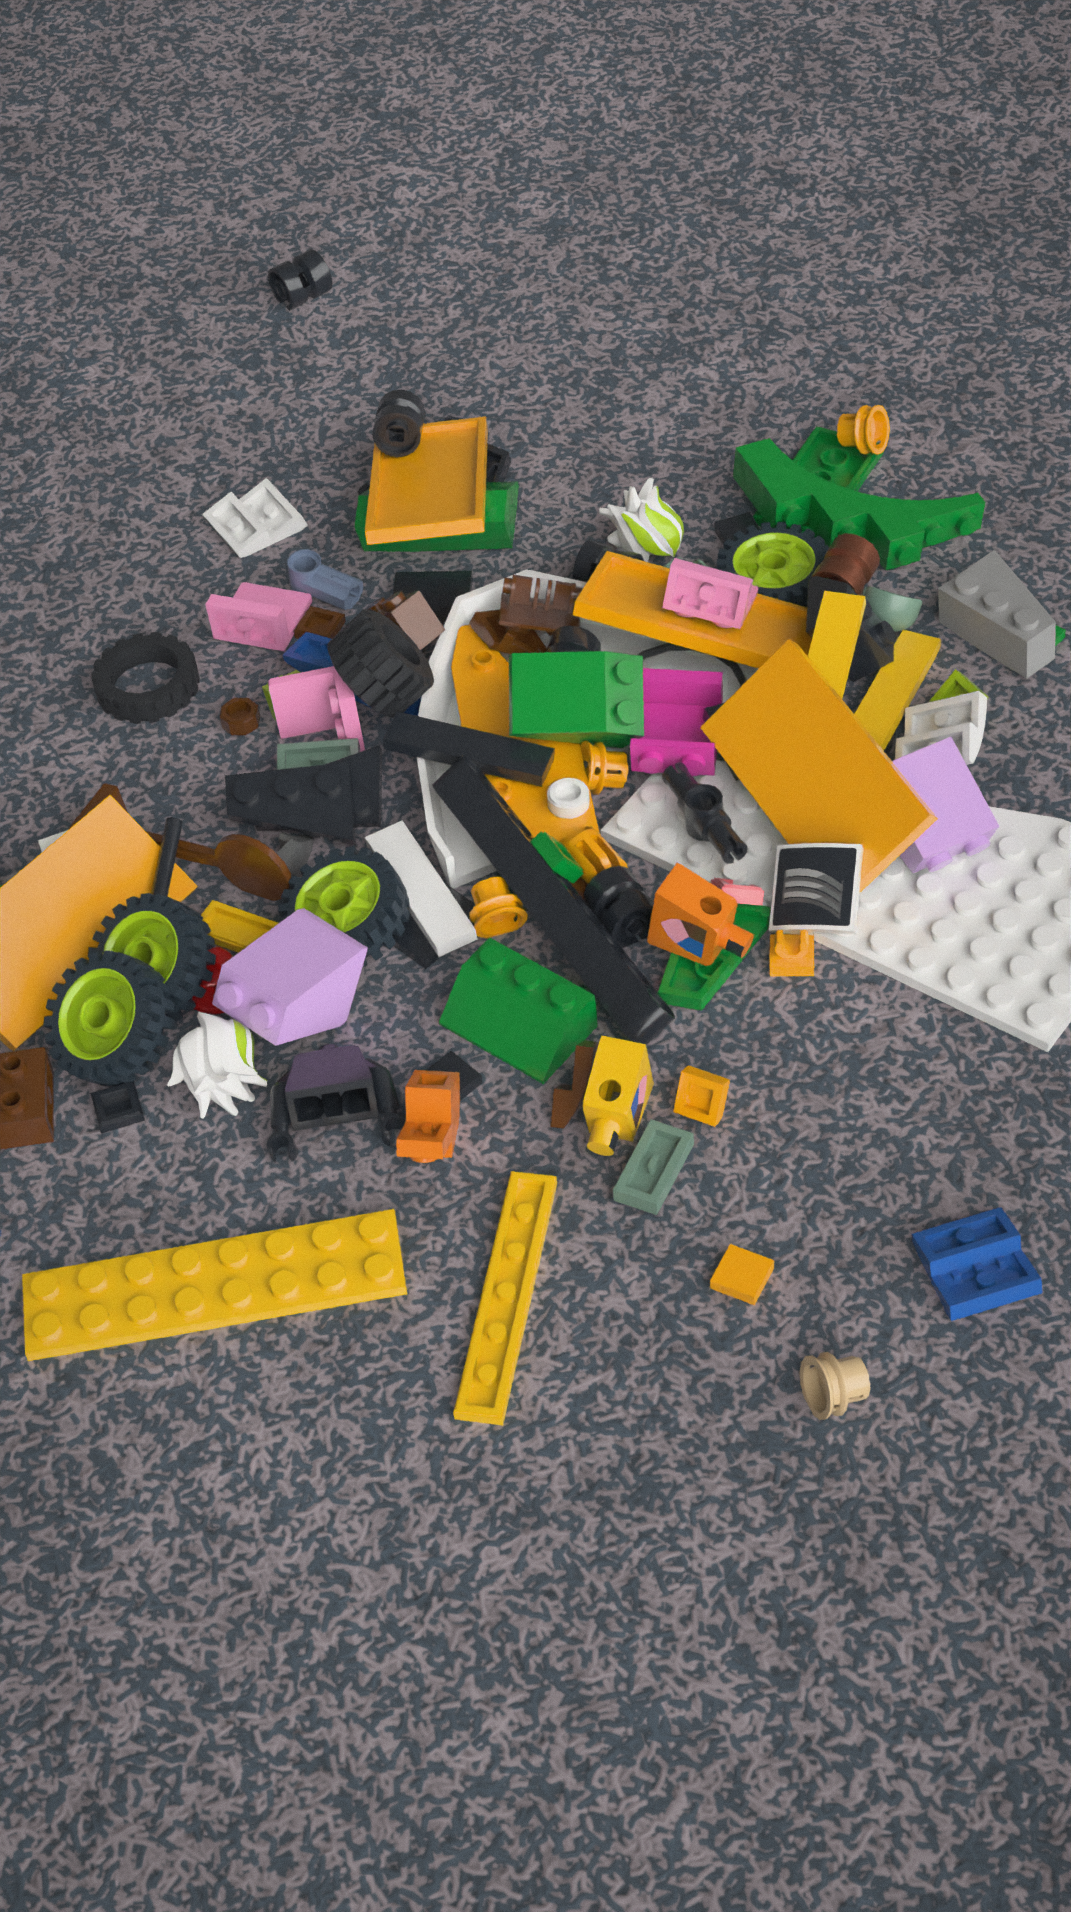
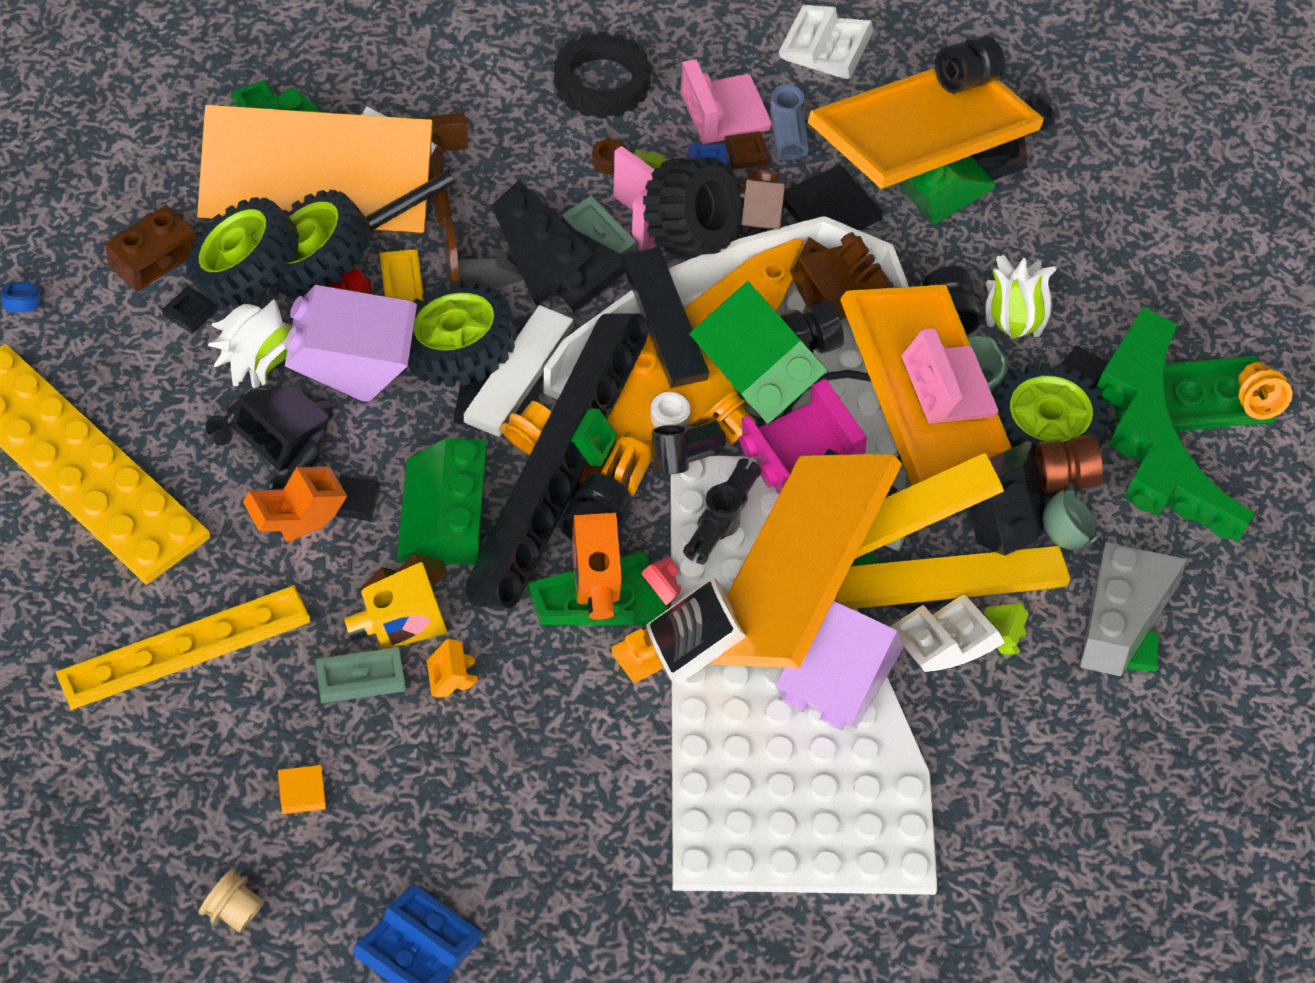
camera: 45 degrees right, 5 degrees up
(611, 807) = (679, 445): none -> black piece

